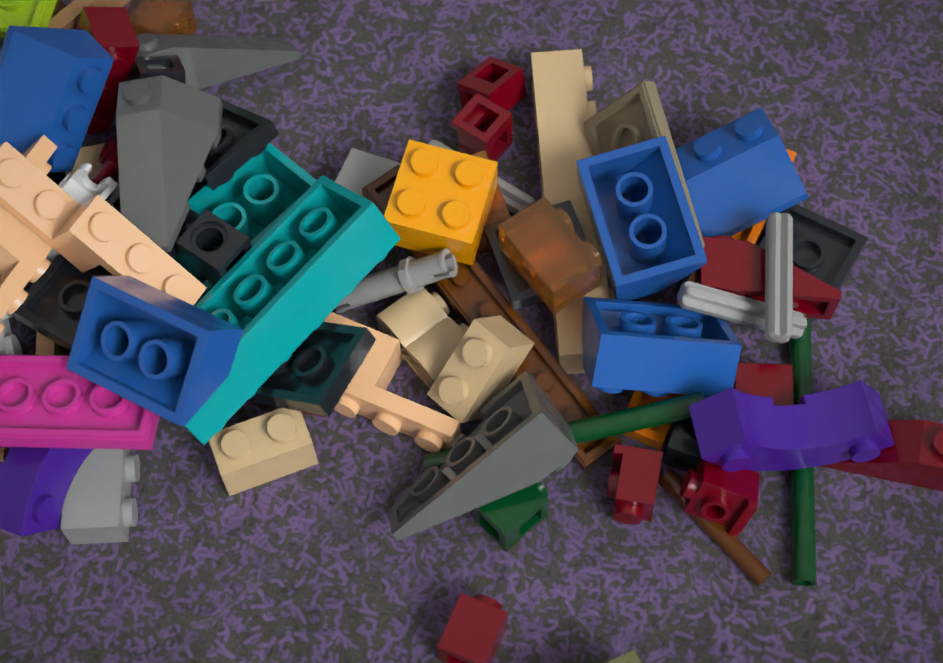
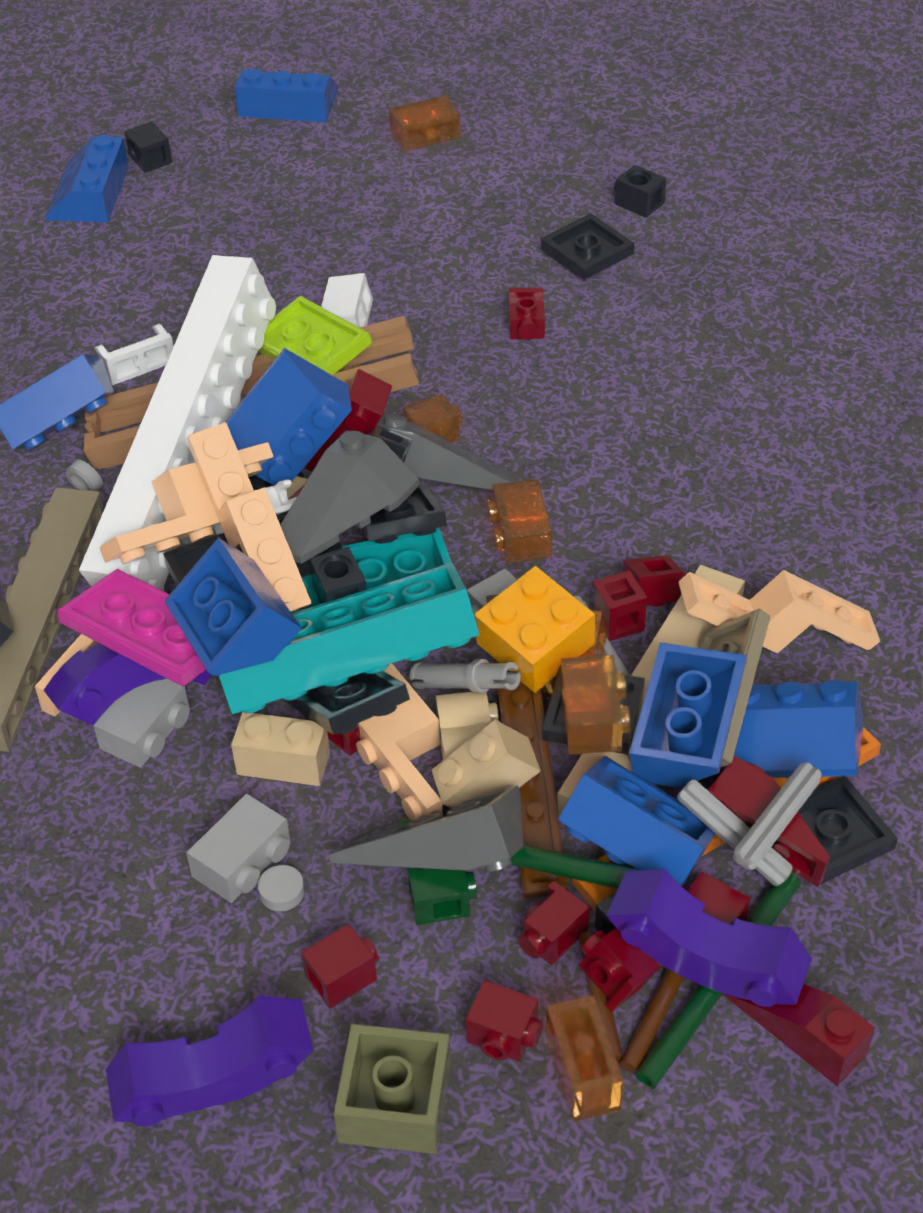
camera: 30 degrees right, 15 degrees down
(295, 573) = (239, 848): none -> light grey brick
(325, 87) = (521, 521): none -> clear orange brick
(358, 588) = (281, 888): none -> light grey tile
(641, 55) = (791, 607): none -> light nougat bracket
(656, 603) = (503, 1022): none -> dark red brick
(751, 597) = (584, 1058): none -> clear orange brick
(773, 528) = (651, 1021): none -> reddish brown bar

